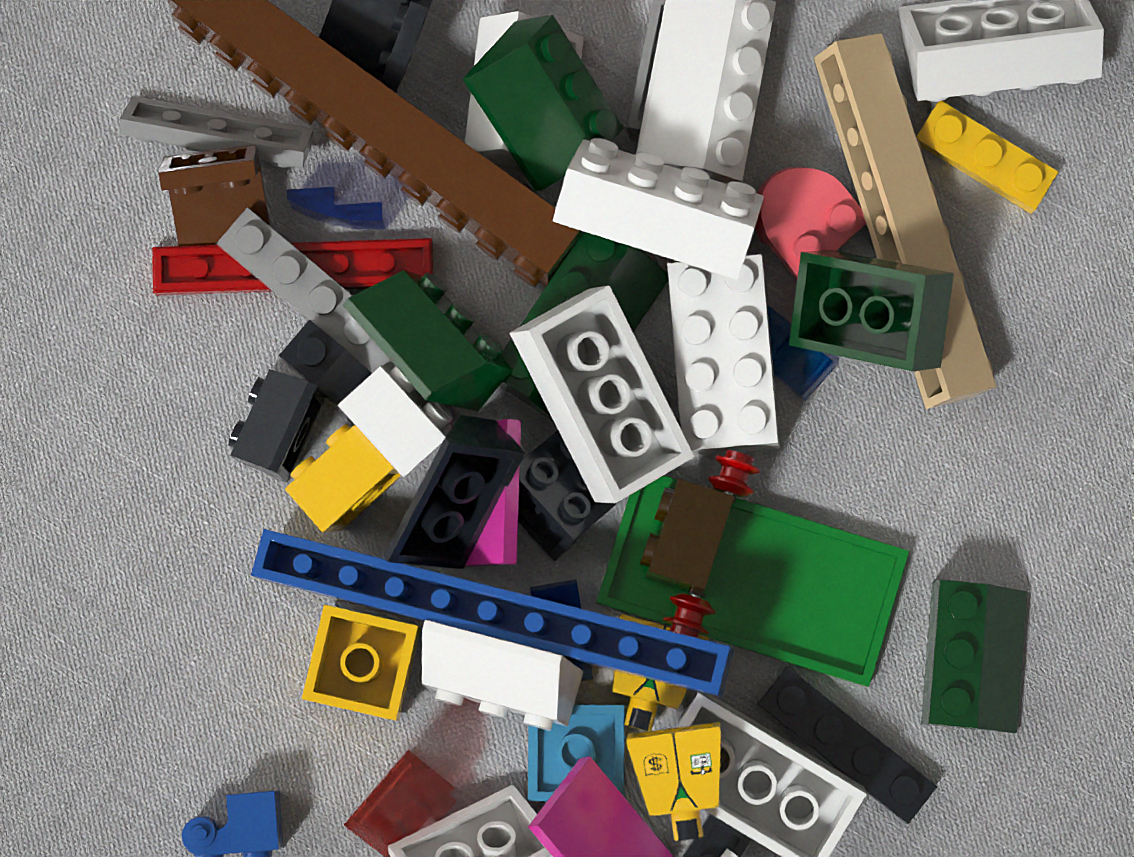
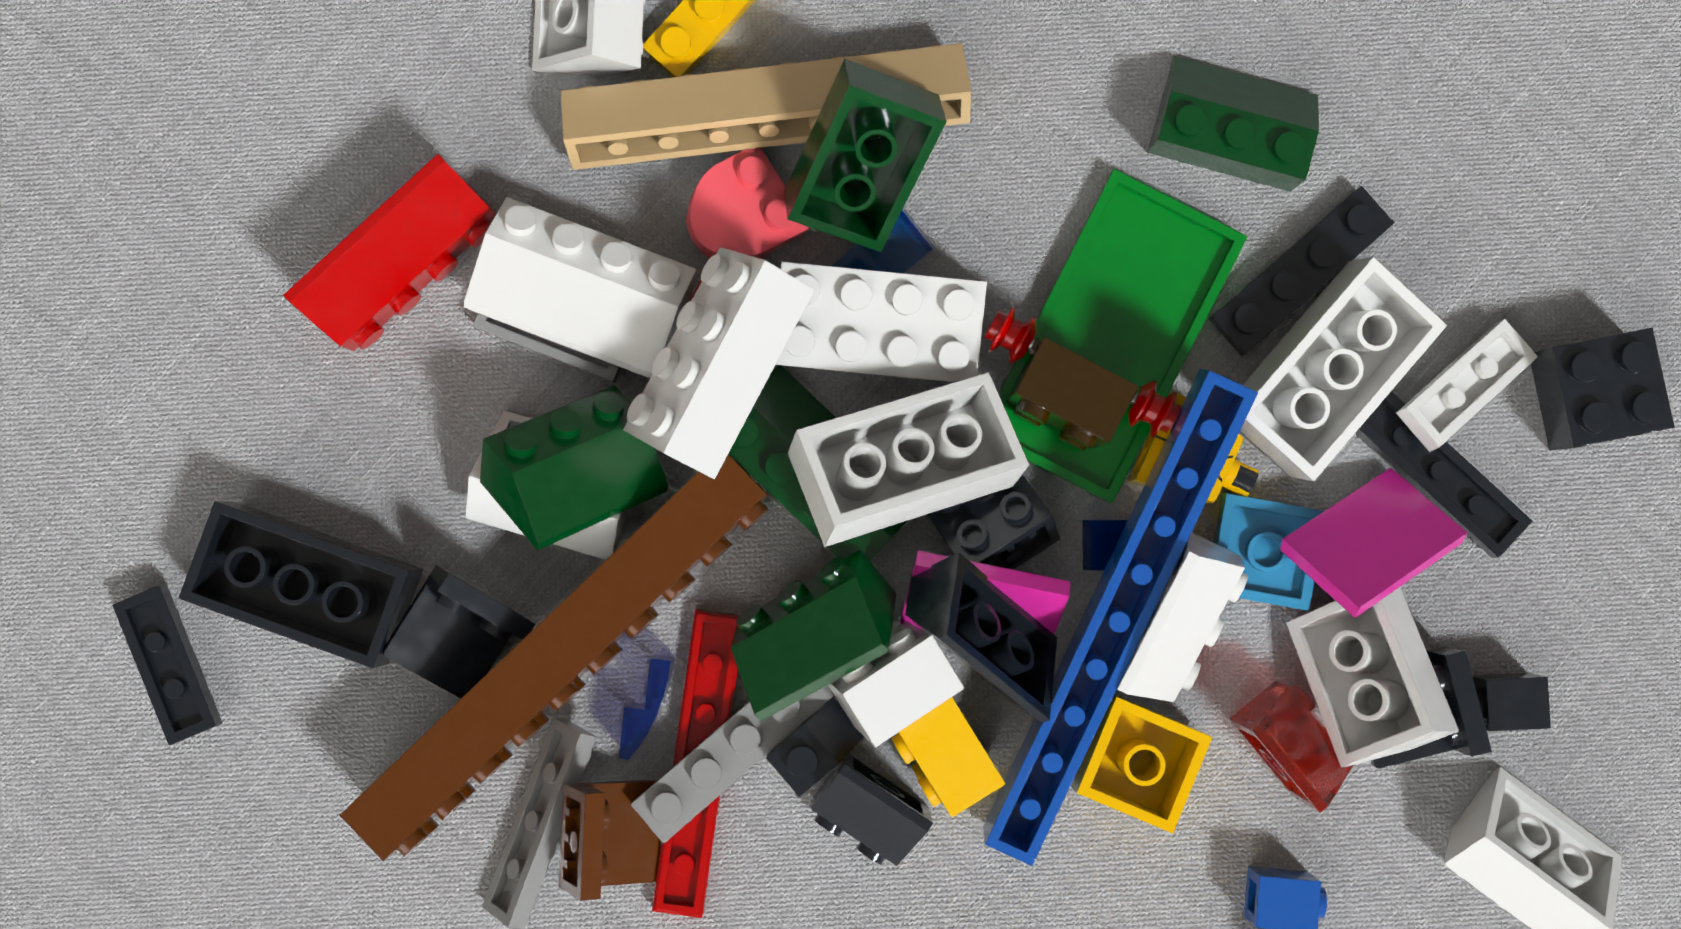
camera: 80 degrees left, 5 degrees up
(679, 773) = (1322, 448): yellow torso -> none

